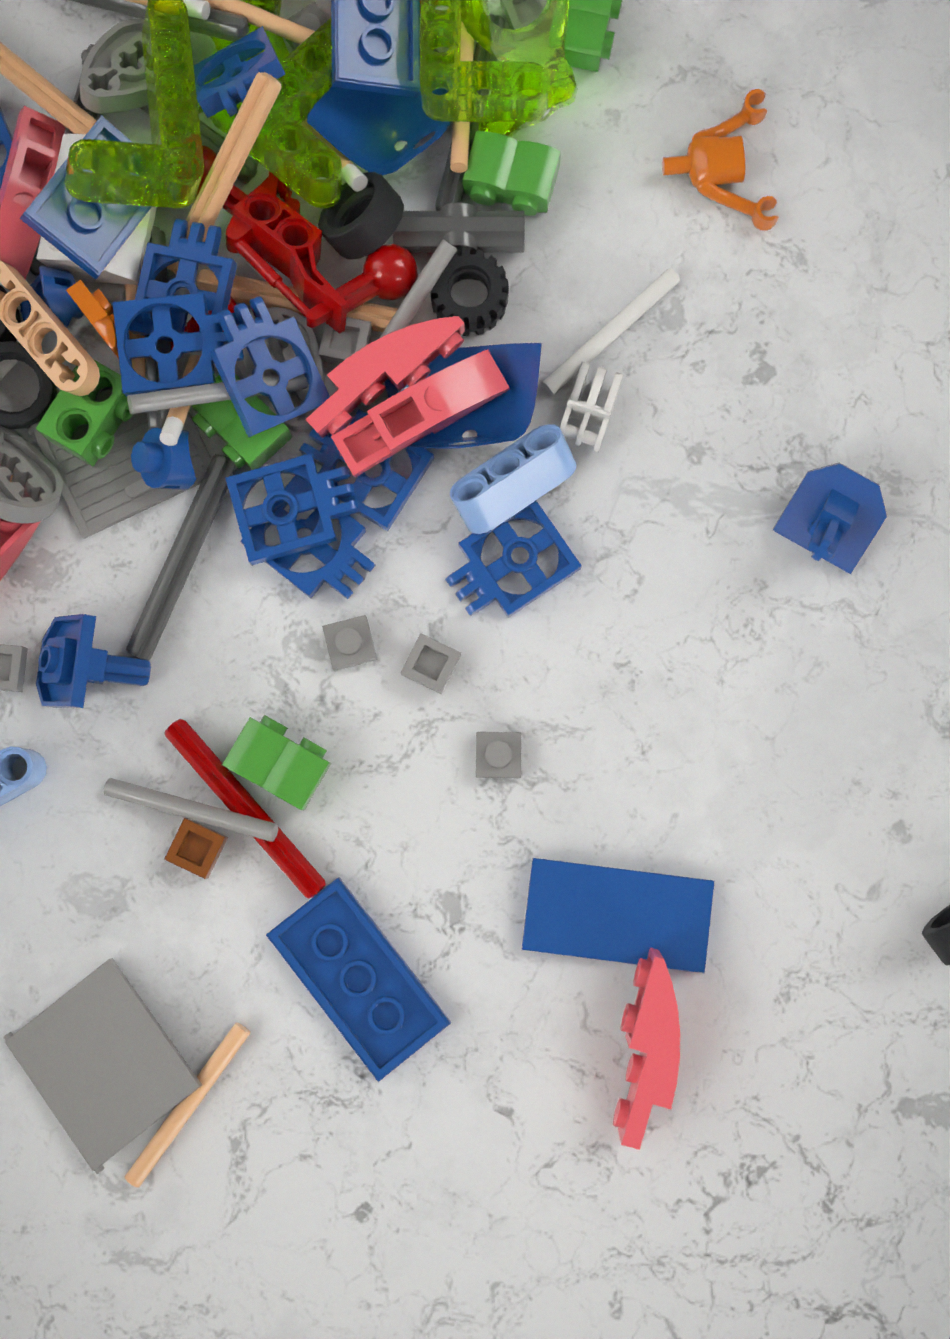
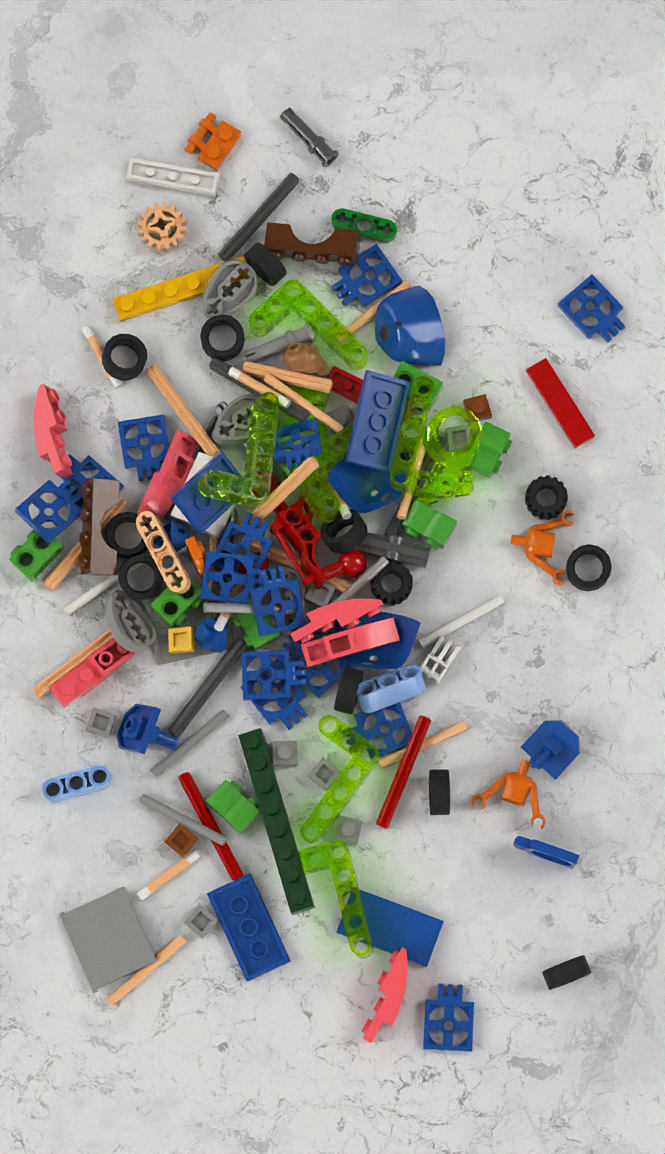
camera: 10 degrees right, 5 degrees down
(111, 482) = (181, 640): none -> yellow plate
(172, 666) = (189, 743): none -> light grey bar
(187, 917) = (168, 875): none -> light nougat bar
(267, 990) = (201, 921): none -> light grey plate
(365, 777) = (276, 821): none -> dark green plate
(437, 500) = (347, 690): none -> black tyre
(466, 667) = (342, 780): none -> clear neon green beam
(514, 869) = (342, 889): none -> clear neon green beam
(574, 624) = (403, 771): none -> red axle
(595, 567) = (429, 741): none -> light nougat bar
(651, 646) = (439, 792): none -> black tyre
(711, 55) = (546, 483): none -> black tyre
(762, 1026) = (449, 1001): none -> blue piece
(787, 611) = (515, 790): none -> orange piece
(824, 153) = (591, 550): none -> black tyre
(879, 709) = (547, 851): none -> blue piece

